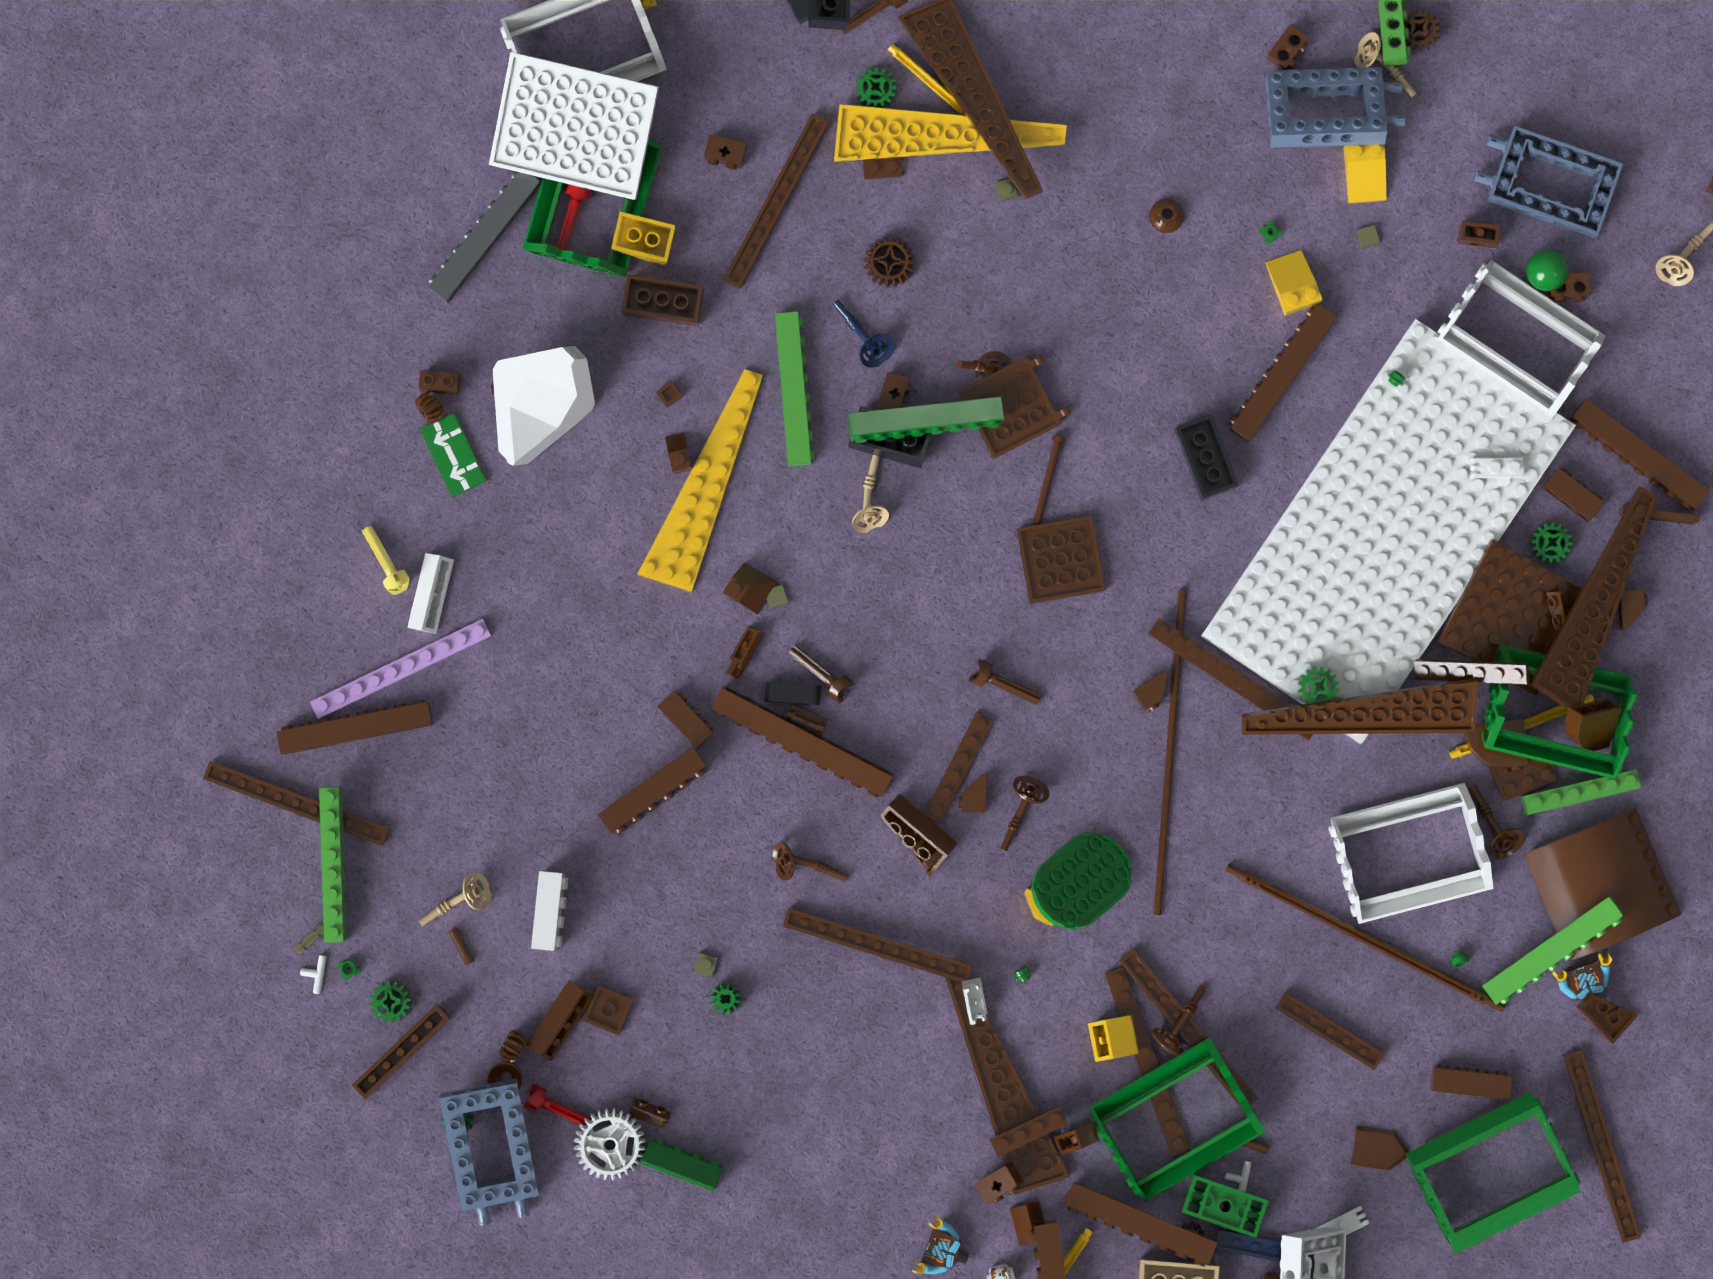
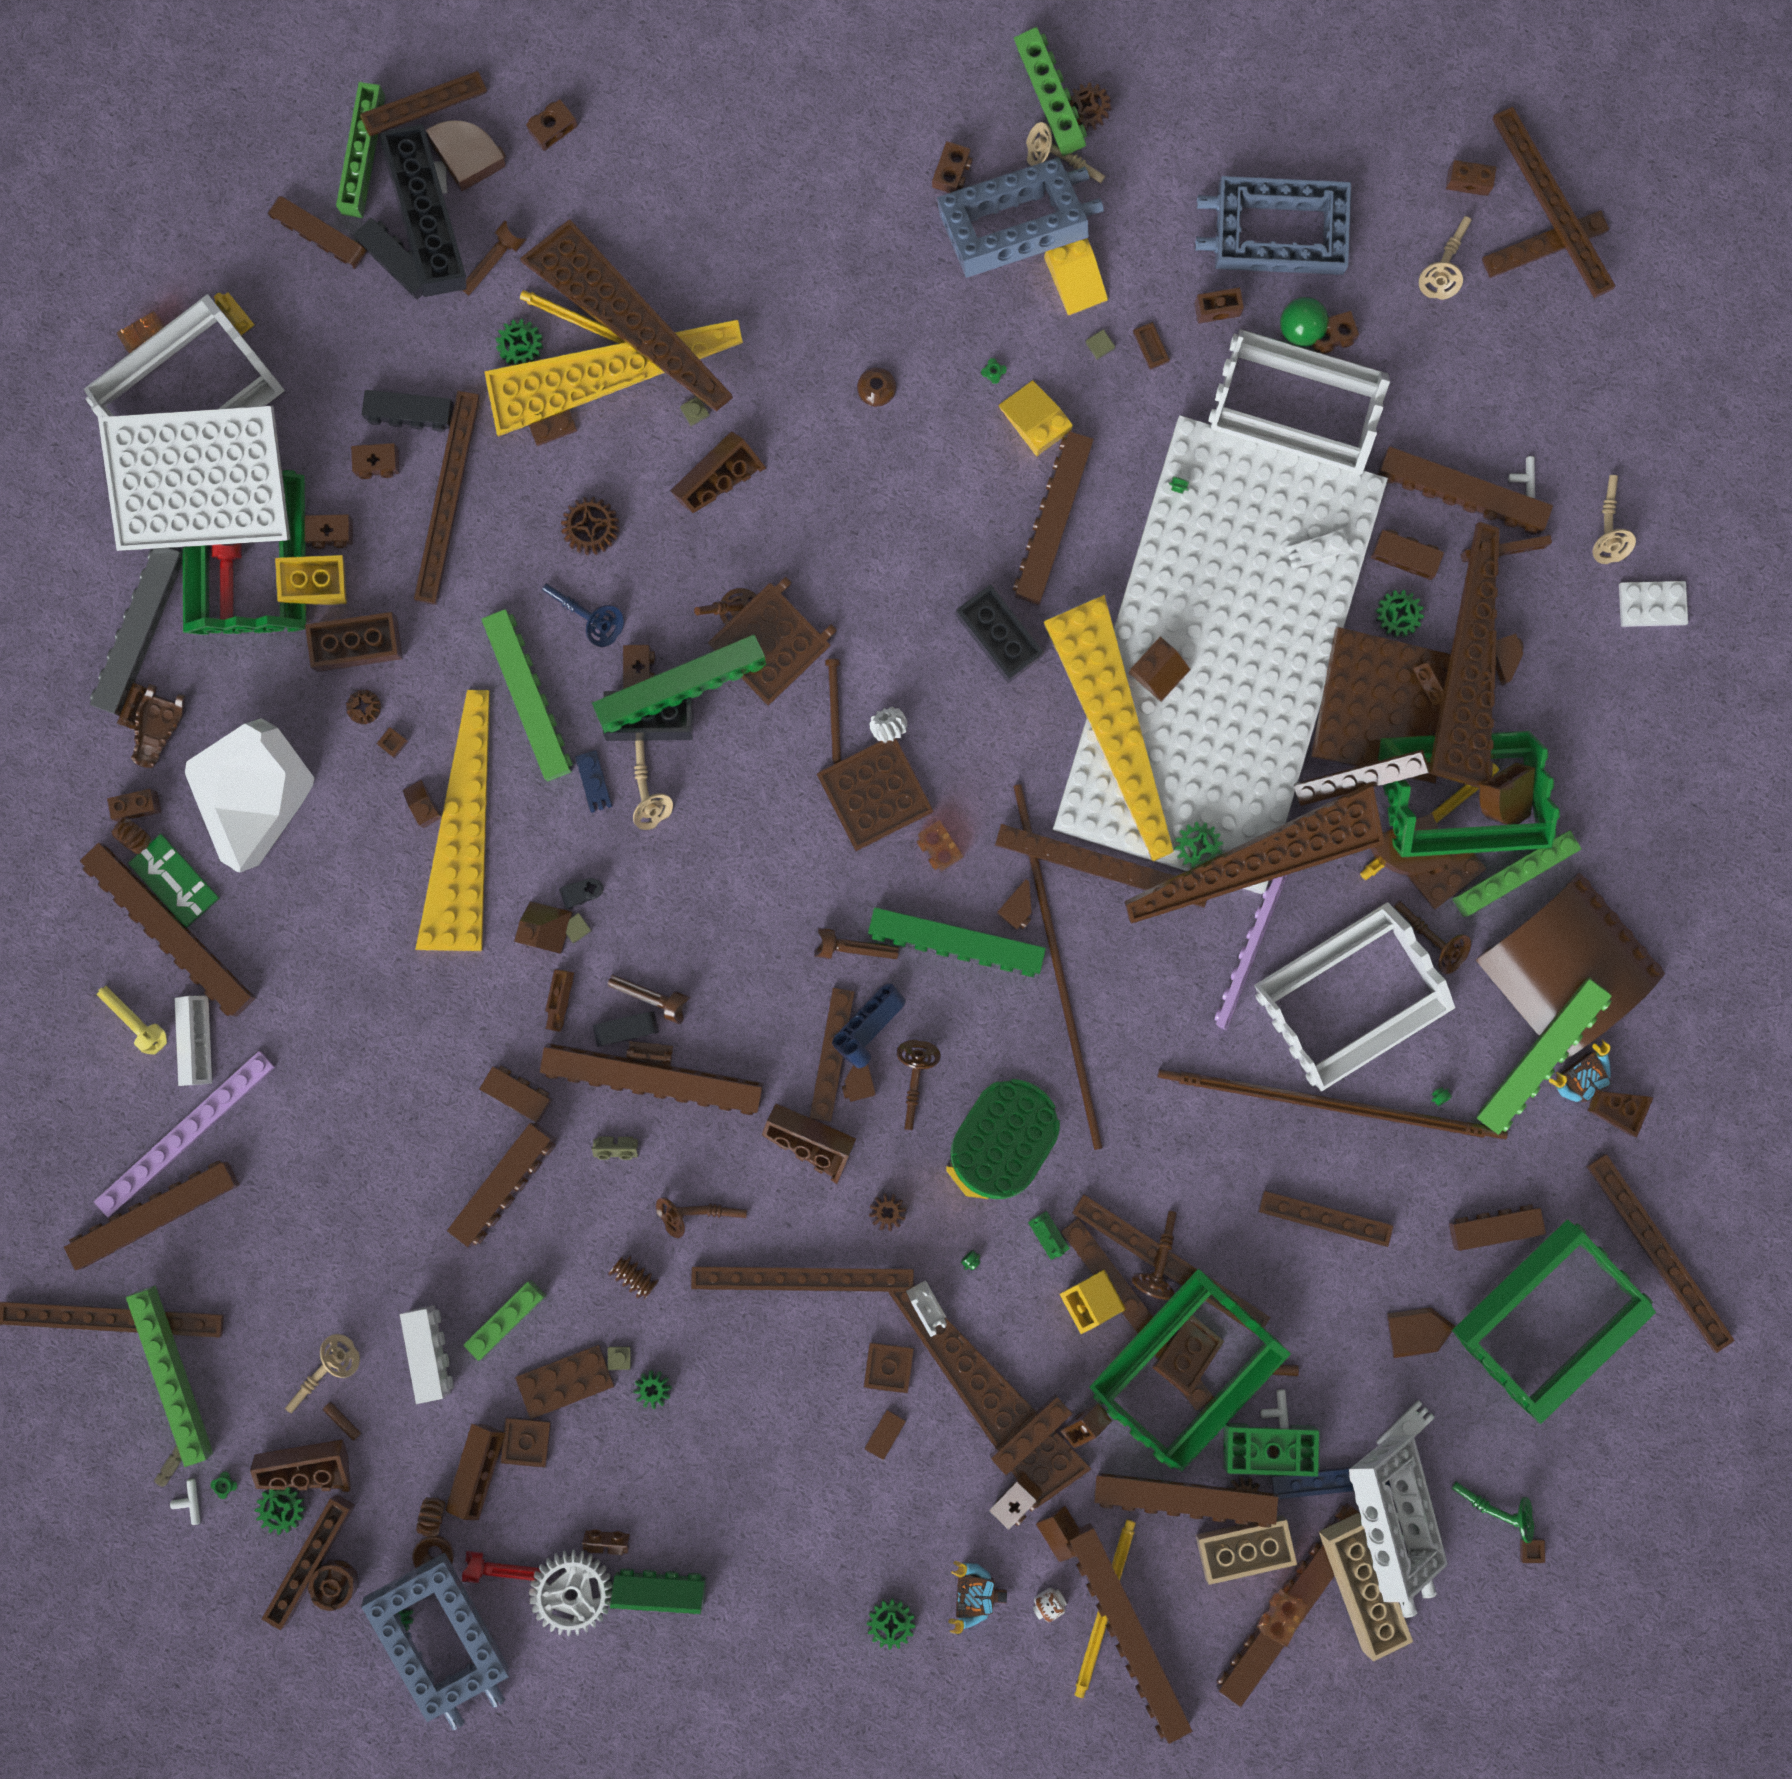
camera: 25 degrees left, 0 degrees up
(416, 1077) = (333, 1585): none -> reddish brown brick
(420, 973) = (303, 1467): none -> reddish brown wedge
(437, 495) = (167, 930): none -> reddish brown brick
(462, 299) = (128, 713): none -> reddish brown hinge
(476, 319) = (155, 724): none -> reddish brown animal
(621, 904) = (504, 1320): none -> bright green brick
(654, 970) = (564, 1381): none -> reddish brown plate
(660, 363) = (372, 711): none -> reddish brown gear
(662, 192) = (318, 525): none -> reddish brown brick
(738, 901) = (633, 1277): none -> reddish brown piece
(761, 793) = (625, 1149): none -> olive hinge
(765, 117) = (407, 409): none -> black brick
(786, 568) = (577, 892): none -> black piece
(827, 477) = (593, 780): none -> dark blue hinge
(856, 1248) = (882, 1623): none -> green gear
(907, 1096) = (885, 1434): none -> reddish brown tile
(926, 1041) = (888, 1367): none -> reddish brown plate
(962, 918) = (887, 1220): none -> reddish brown gear
(995, 751) = (867, 1024): none -> dark blue beam
(1009, 249) = (717, 473): none -> reddish brown wedge
(1089, 505) = (888, 724): none -> white gear
(1092, 705) = (956, 941): none -> green brick
(1093, 973) = (1048, 1235): none -> green hinge
(1106, 620) = (944, 844): none -> clear orange brick
(1179, 1106) = (1188, 1355): none -> reddish brown plate
(1277, 512) = (1096, 671): none -> yellow wing
(1331, 529) = (1160, 669): none -> reddish brown slope
(1333, 790) = (1248, 953): none -> lavender plate
(1411, 250) = (1151, 345): none -> reddish brown tile
(1697, 460) = (1528, 478): none -> white piece

